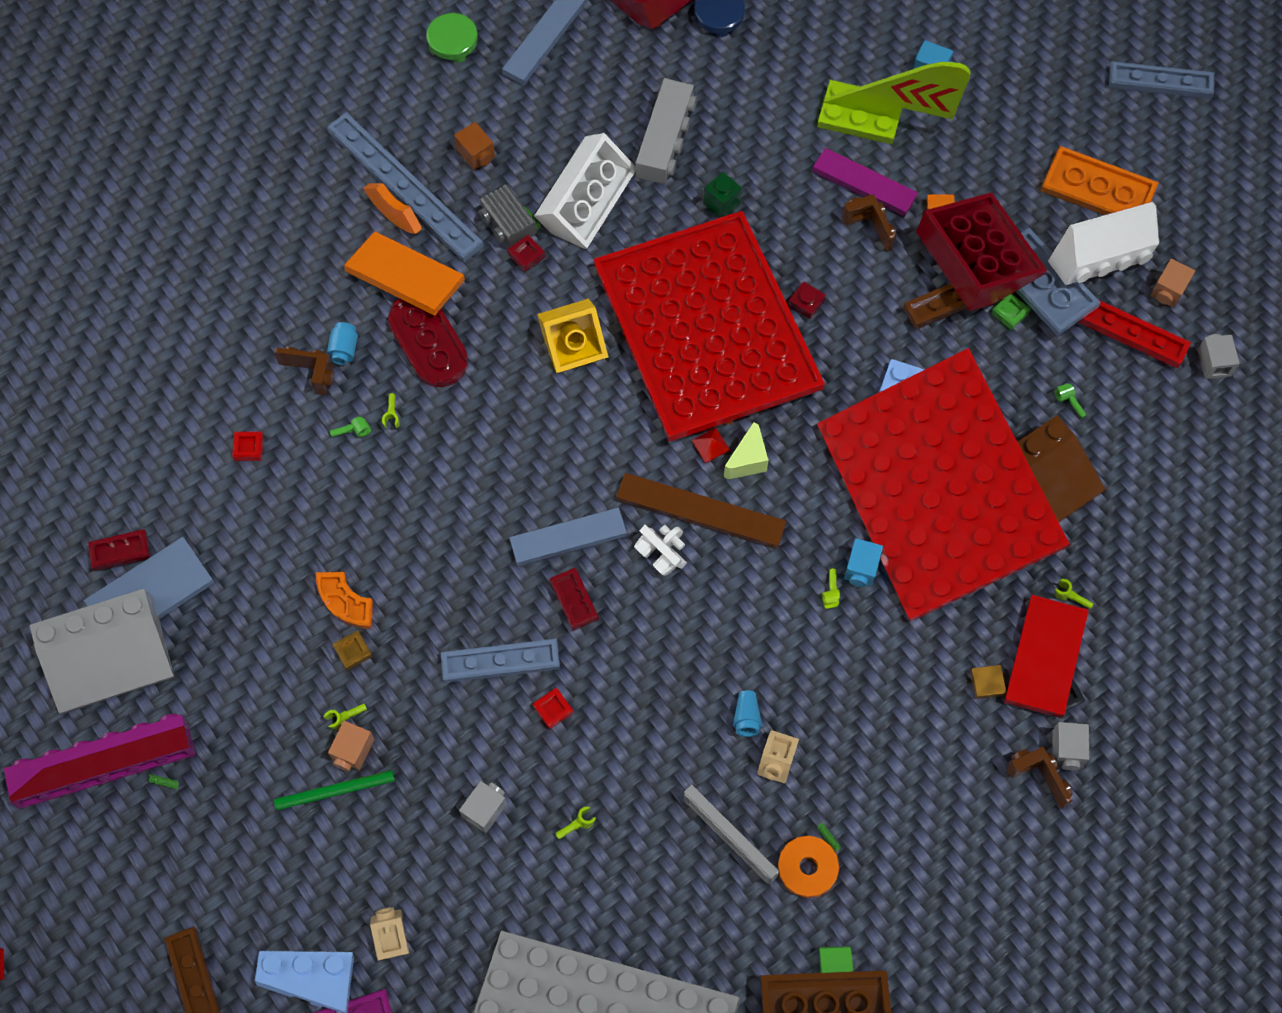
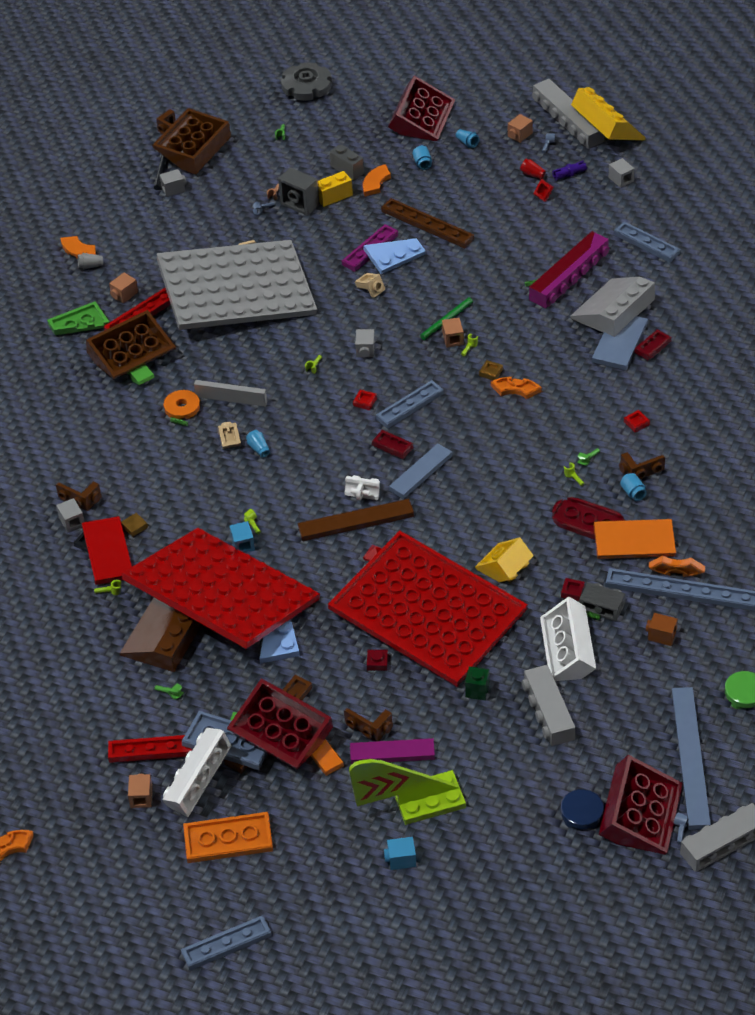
camera: 150 degrees right, 20 degrees down
(749, 456) = (346, 554): yellowish green slope -> none
(1218, 356) = (85, 760): light grey brick -> none

